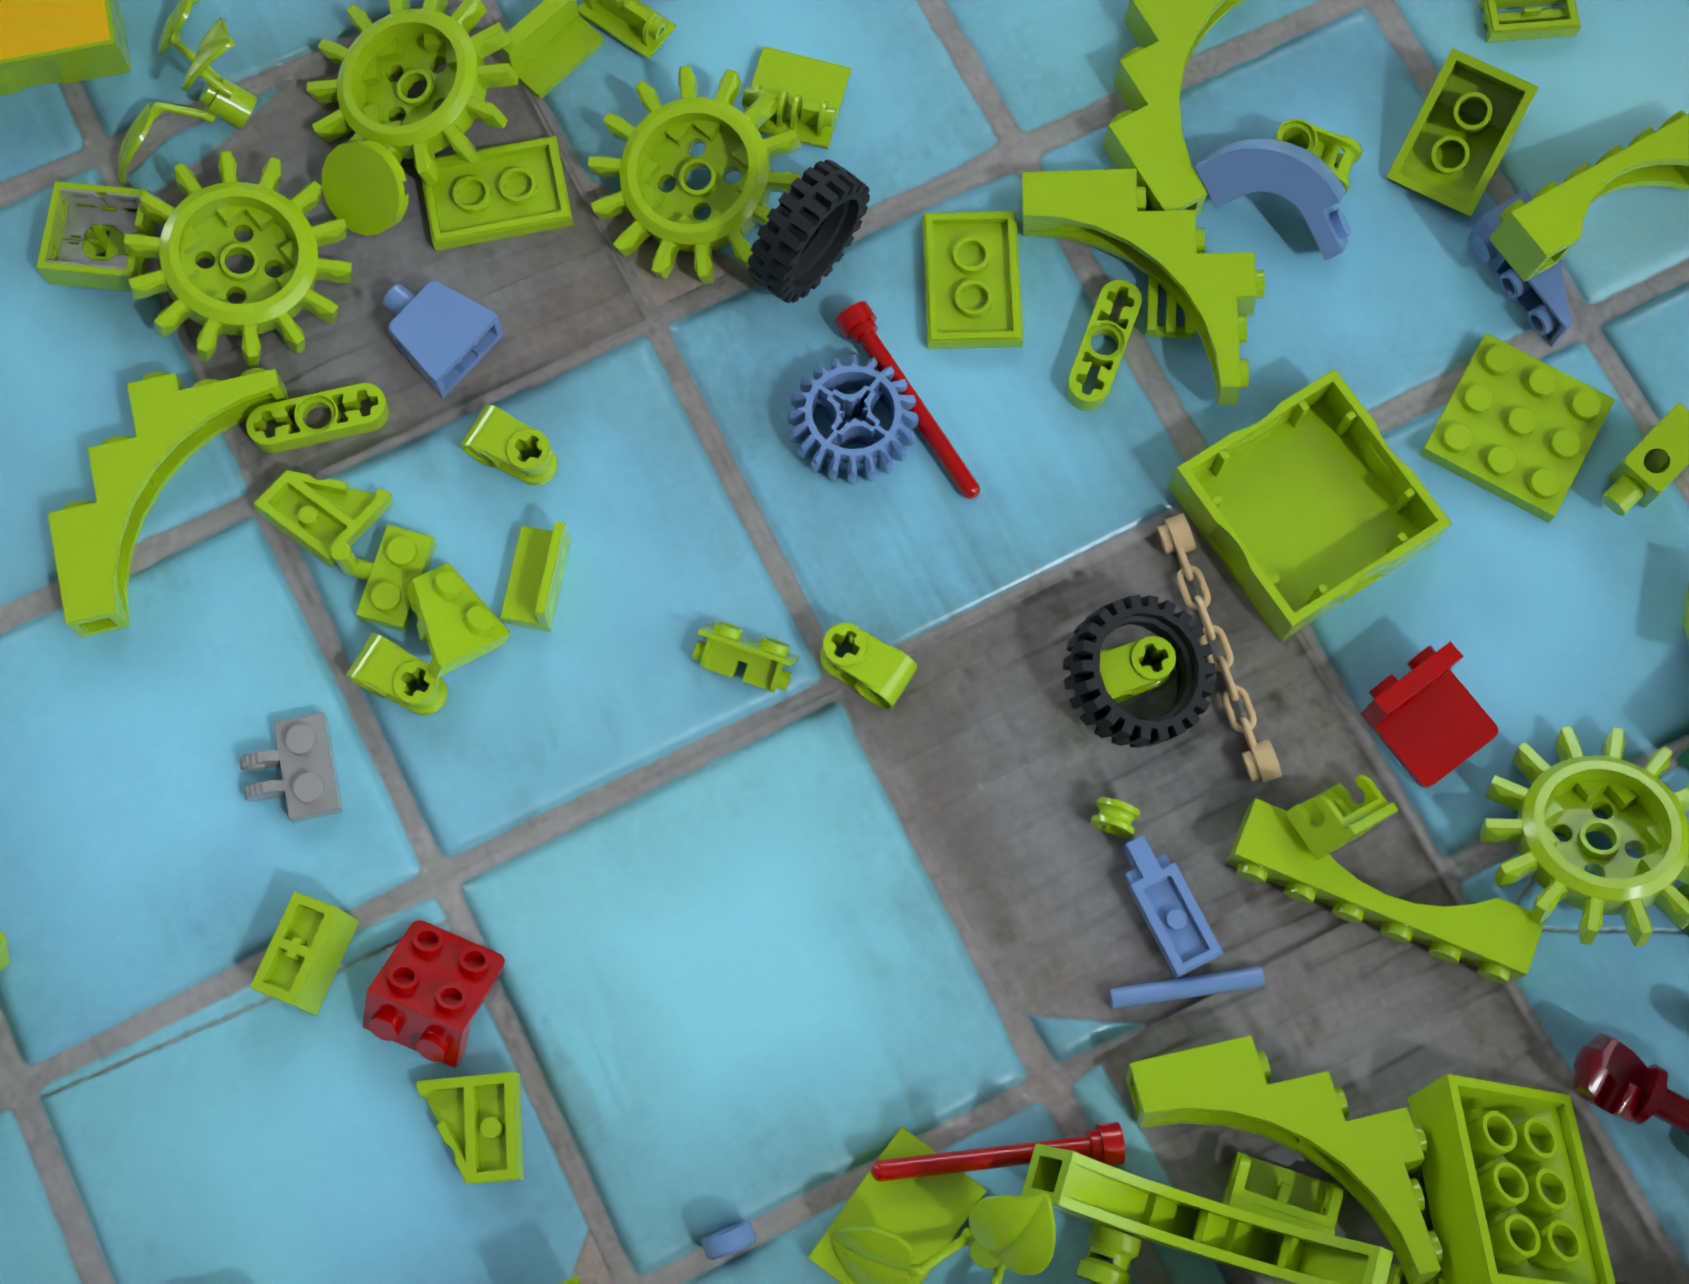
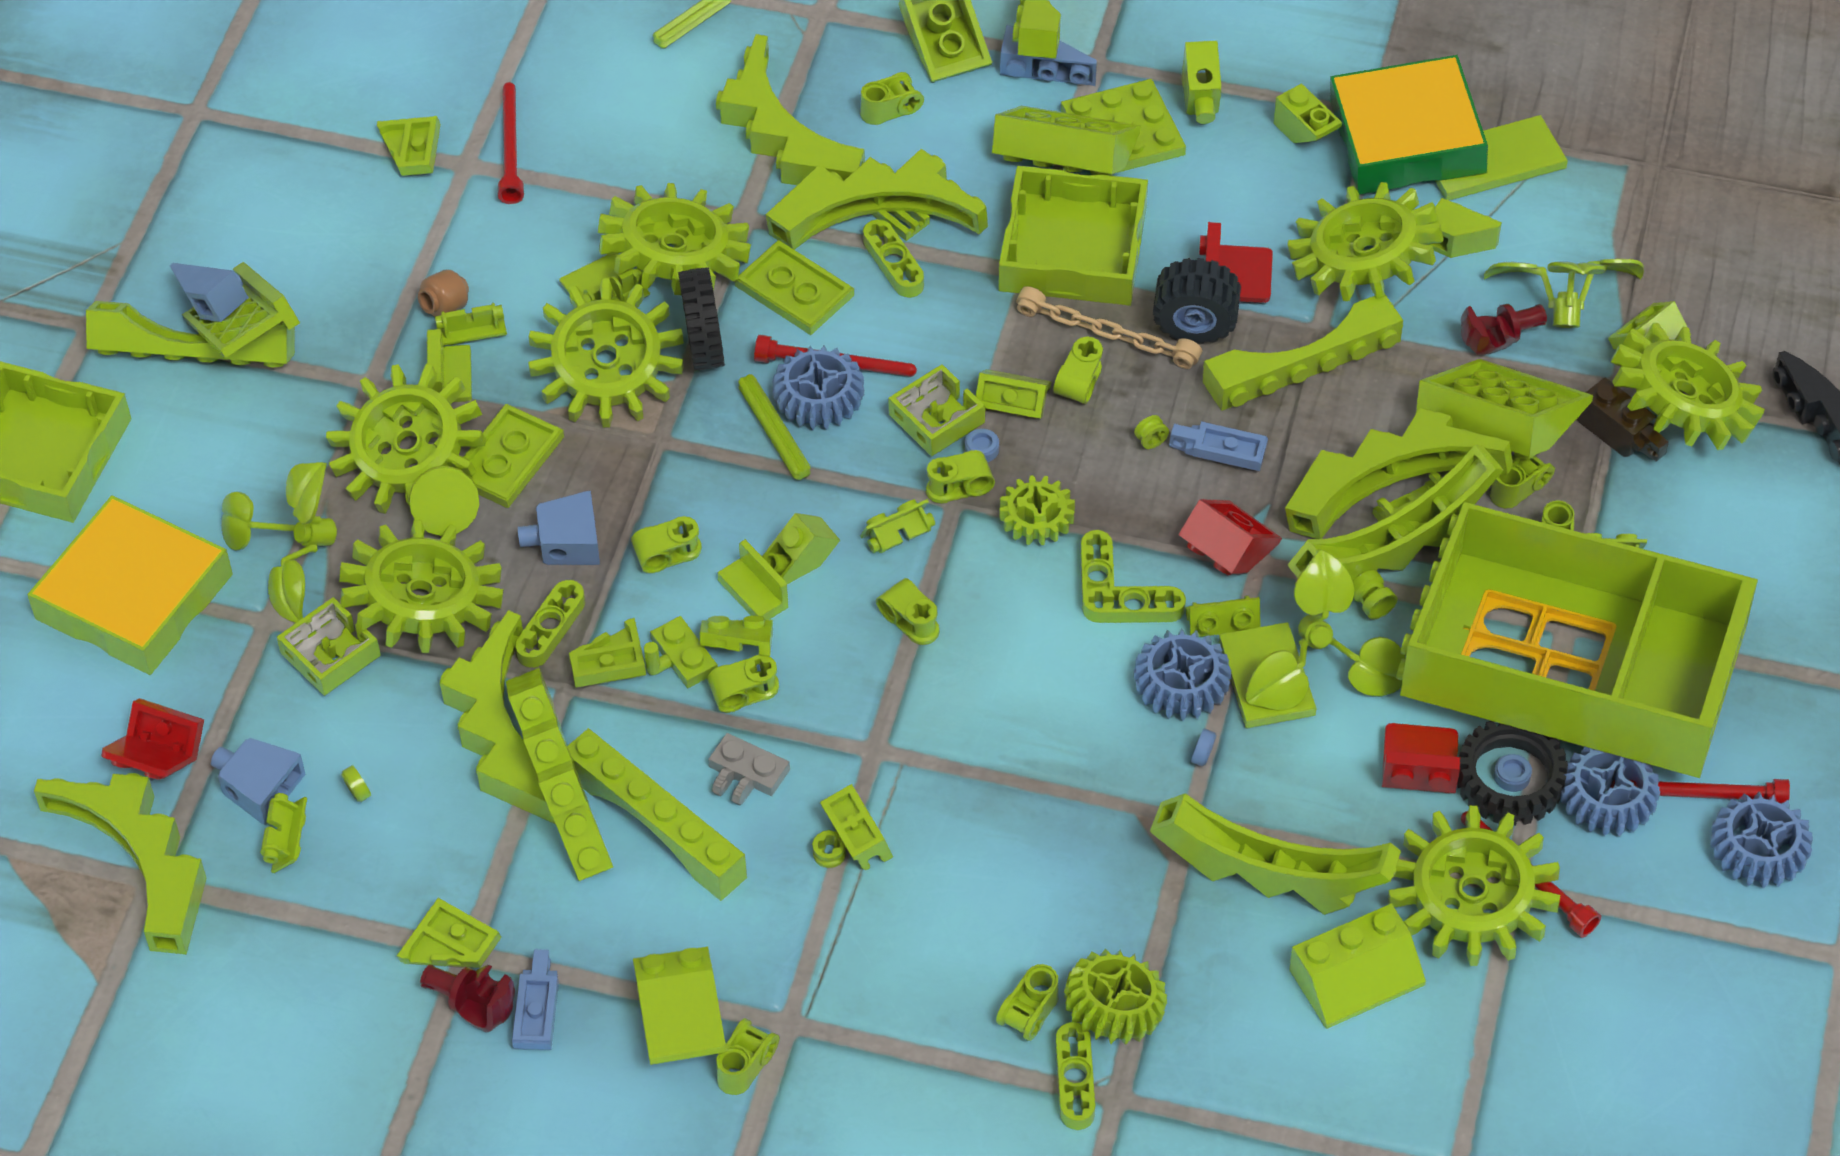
camera: 45 degrees left, 20 degrees down
(99, 569) = (557, 774): none -> lime arch
(140, 797) = (699, 847): none -> lime arch
(248, 935) = (819, 845): none -> lime bush
(431, 992) = (940, 790): red bracket -> none
(480, 1123) = (1030, 816): lime wing -> none
(618, 582) = (801, 546): none -> lime slope
(641, 757) = (910, 611): none -> lime piece
(765, 419) = (774, 427): none -> lime axle
(831, 1093) = (1171, 688): none -> medium blue gear
(858, 947) = (1108, 593): none -> lime beam
(877, 769) = (1052, 512): none -> lime gear
(913, 1095) = (1224, 616): none -> lime hinge
(922, 81) = (696, 232): none -> lime gear
(935, 549) = (937, 394): none -> lime piece
(937, 649) = (984, 441): none -> medium blue tile
(1032, 619) = (1012, 393): none -> lime panel
(1048, 1024) = (1228, 536): none -> slope
(1090, 688) = (1084, 384): black tyre -> none
(1102, 1144) = (1262, 619): red piece -> none
(1186, 987) = (1268, 470): medium blue bar -> none
(1285, 171) = (875, 115): medium blue arch -> none
(1329, 721) = (1197, 300): none -> black wheel
(1336, 819) = (1251, 334): lime hinge -> none
(1428, 385) = (1064, 140): none -> lime slope

